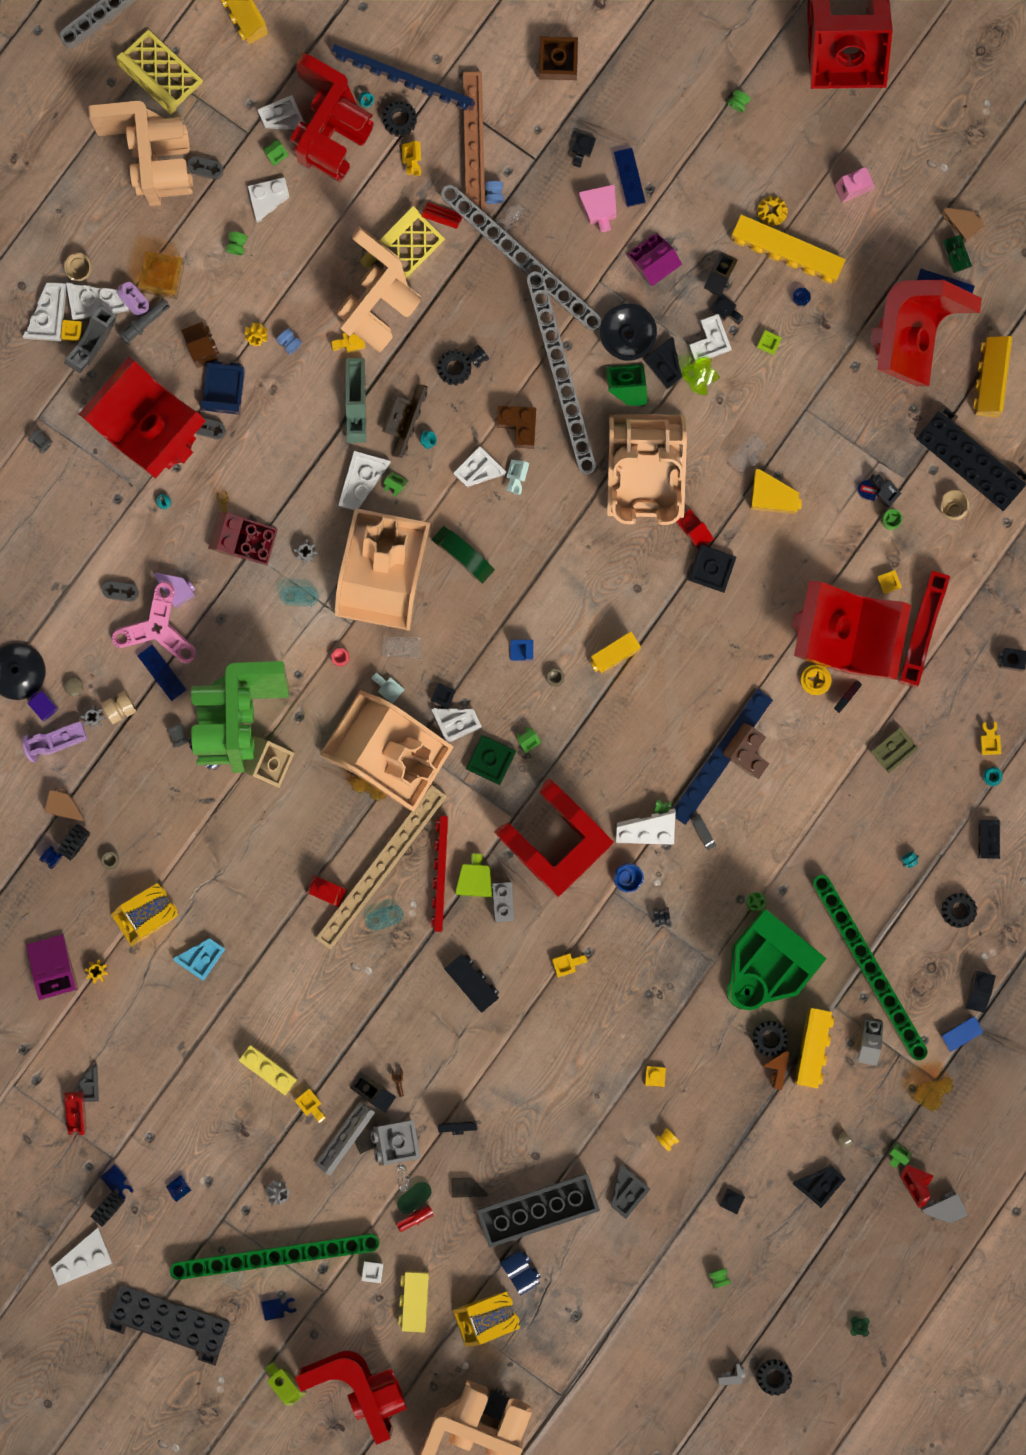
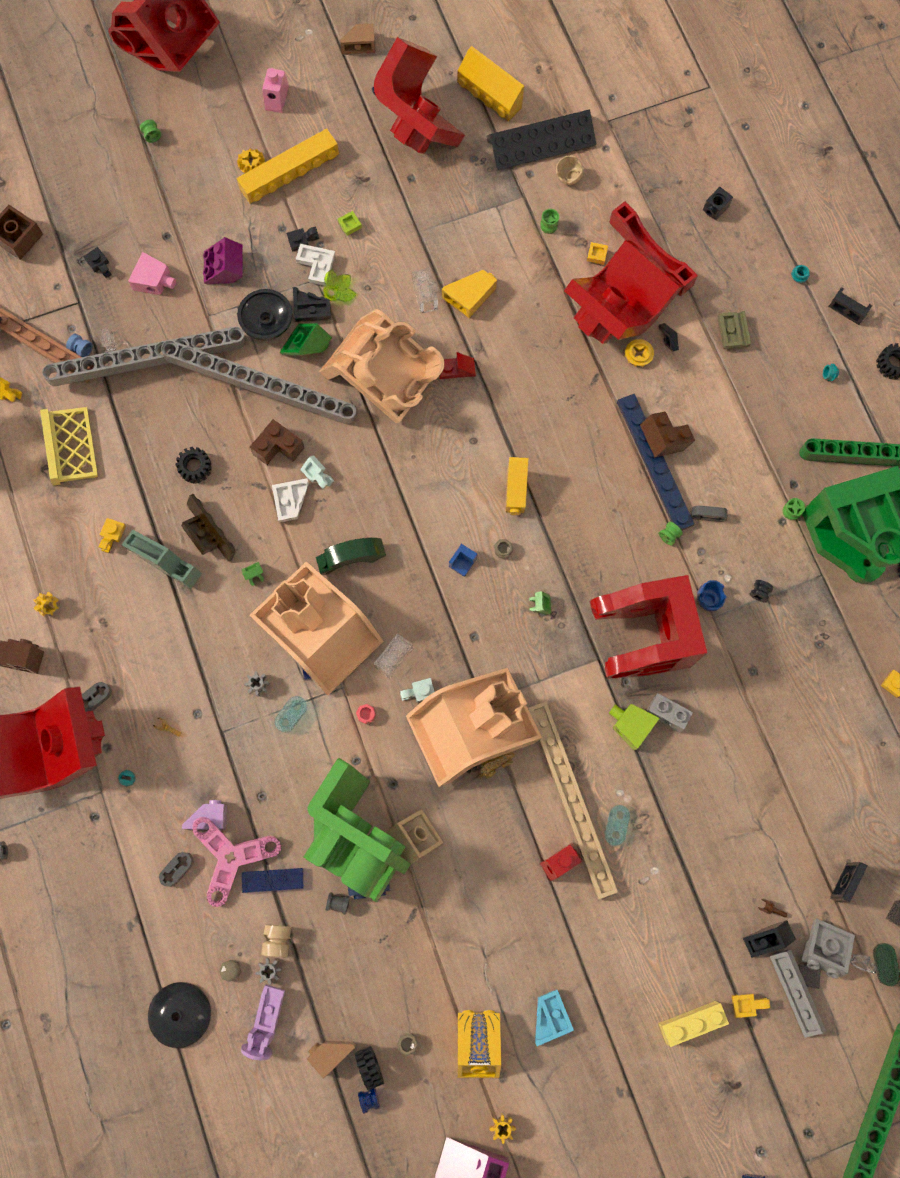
camera: 60 degrees left, 10 degrees down
(42, 705) = (226, 1012): dark purple brick -> none
(223, 388) = (69, 661): dark blue panel -> none
(242, 538) = (206, 730): dark red slope -> none
(277, 1192) = (813, 1092): light grey gear -> none
(289, 341) = (72, 581): medium blue wheel -> none
(361, 479) = (229, 597): white wing -> none
(379, 283) = (81, 464): light nougat piece -> none
(428, 439) = (236, 523): teal plate -> none
(440, 865) = (616, 755): red plate -> none
(441, 215) = (66, 396): red tile -> none
(443, 695) = (457, 649): black plate -> none
(456, 722) = (487, 653): white wing -> none
(472, 982) = (723, 785): black brick -> none
(477, 356) = (198, 439): black wheel -> none
(491, 760) = (538, 645): dark green plate -> none
(566, 965) = (754, 695): yellow plate -> none
(629, 177) = (147, 243): clear blue tile -> none
(649, 830) = (683, 552): white wing -> none
(712, 568) = (497, 373): black plate -> none
(720, 274) = (271, 224): black slope -> none
(801, 297) = (331, 180): clear blue tile -> none
(867, 490) = (514, 225): clear blue tile -> none
(886, 492) = (525, 211): black plate -> none
(957, 253) = (375, 55): dark green hips -> none
(990, 743) = (772, 259): yellow plate -> none

